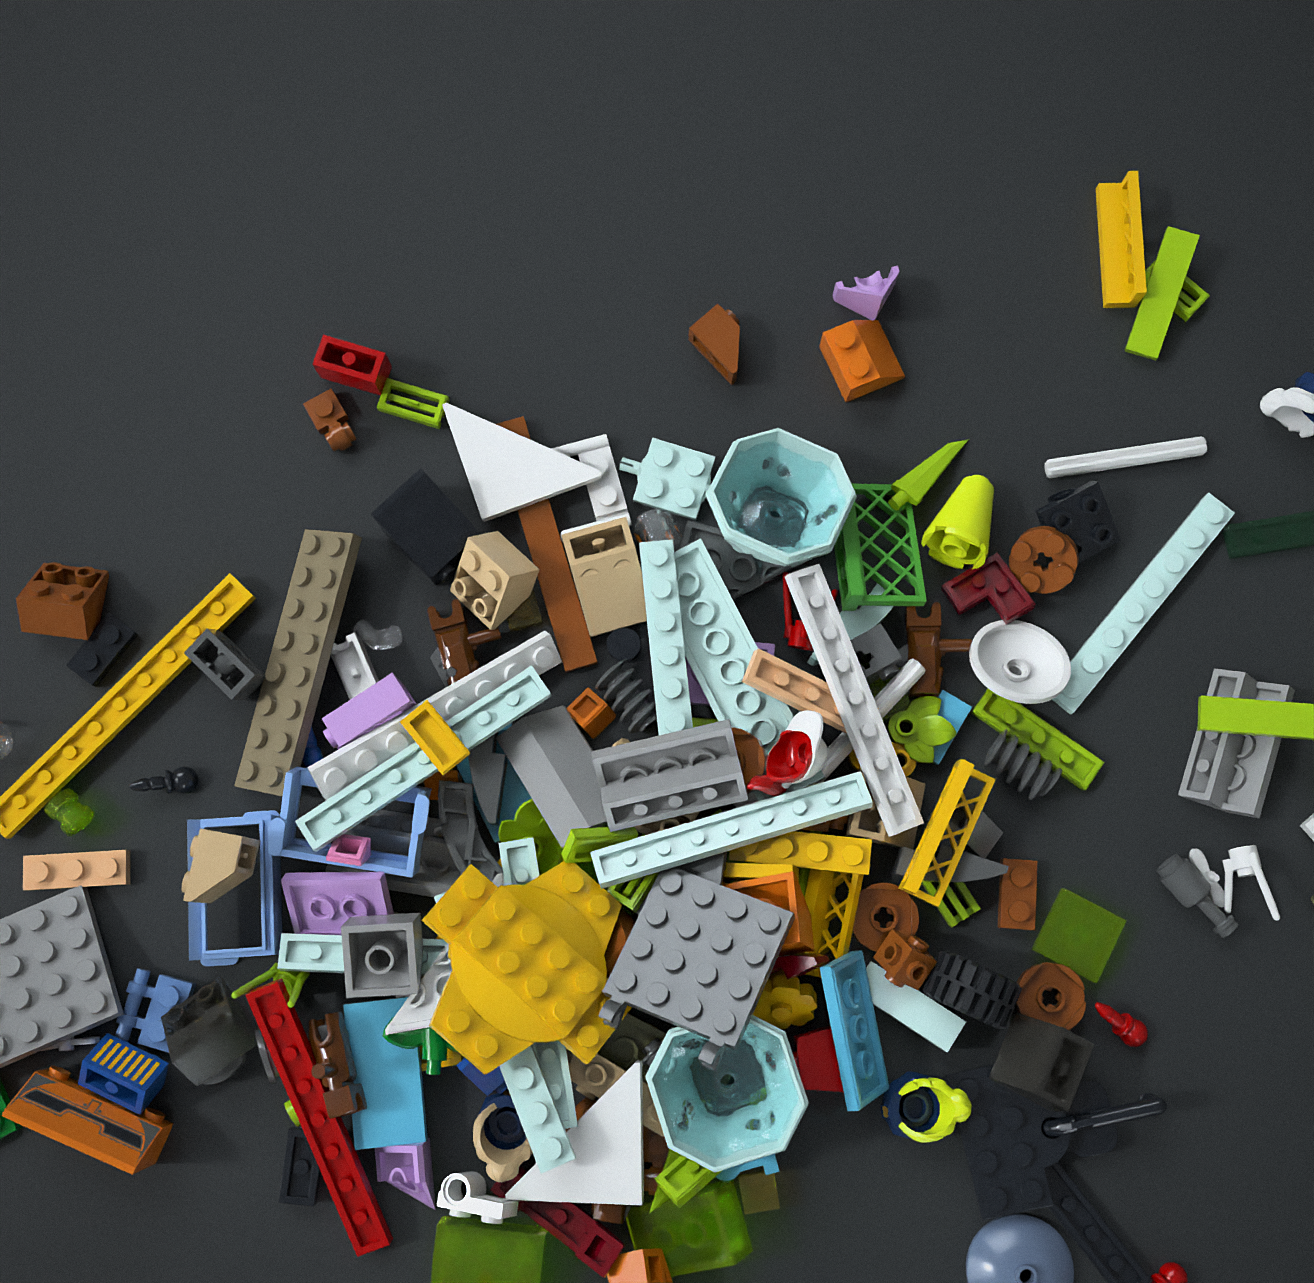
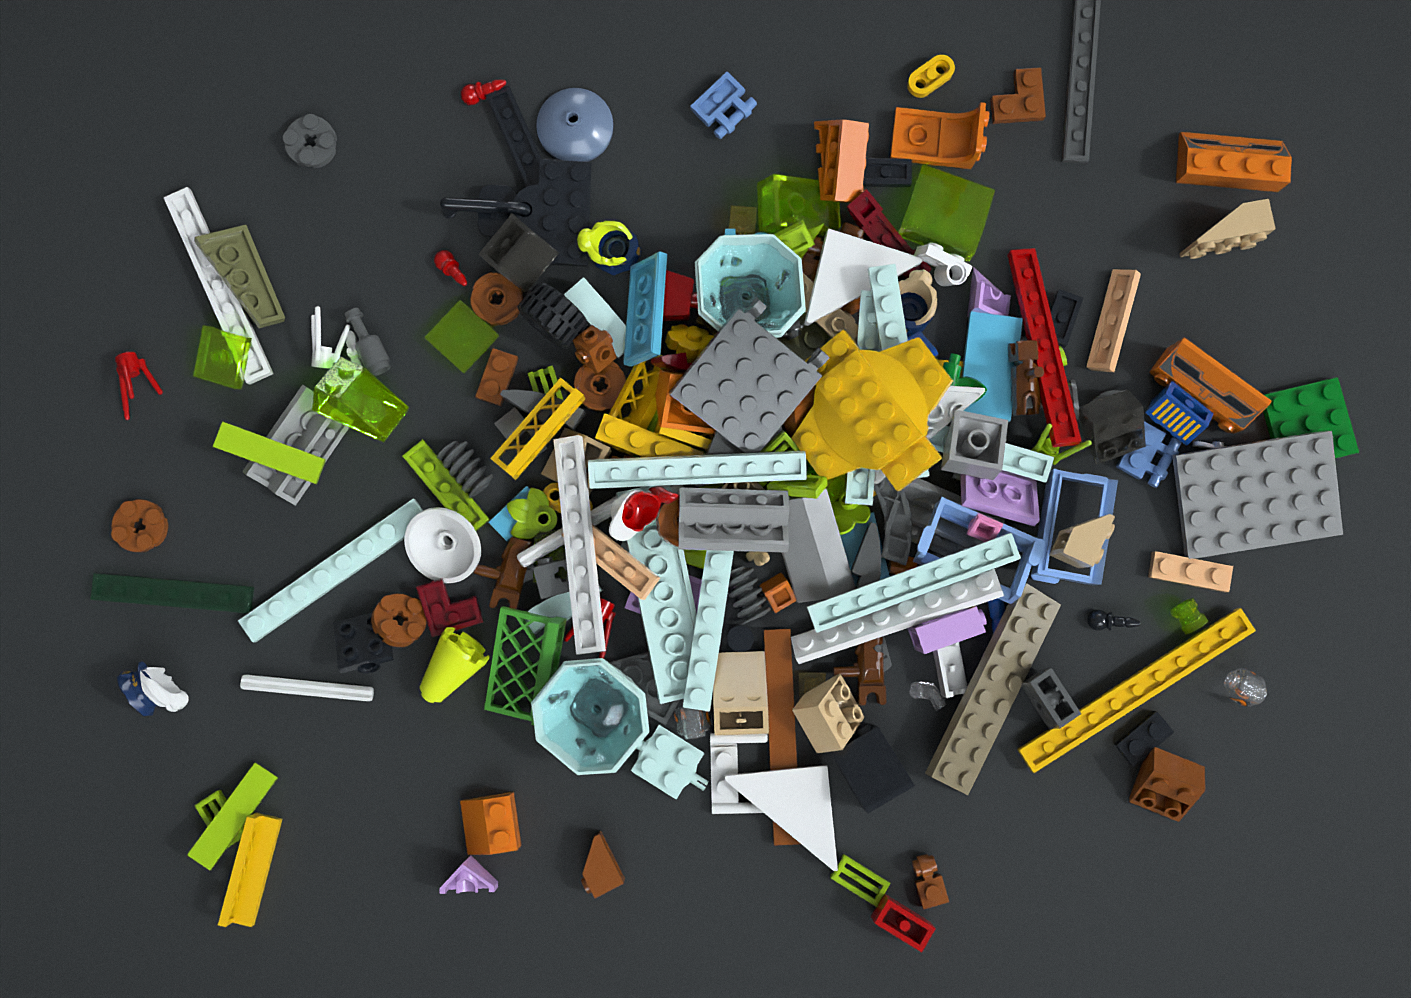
camera: 170 degrees left, 5 degrees up
(232, 1182) = (1113, 320): none -> light nougat plate
(435, 737) = (902, 593): yellow tile -> none
(919, 480) = (477, 708): lime bar -> none
(1182, 814) = (358, 400): none -> clear neon green slope

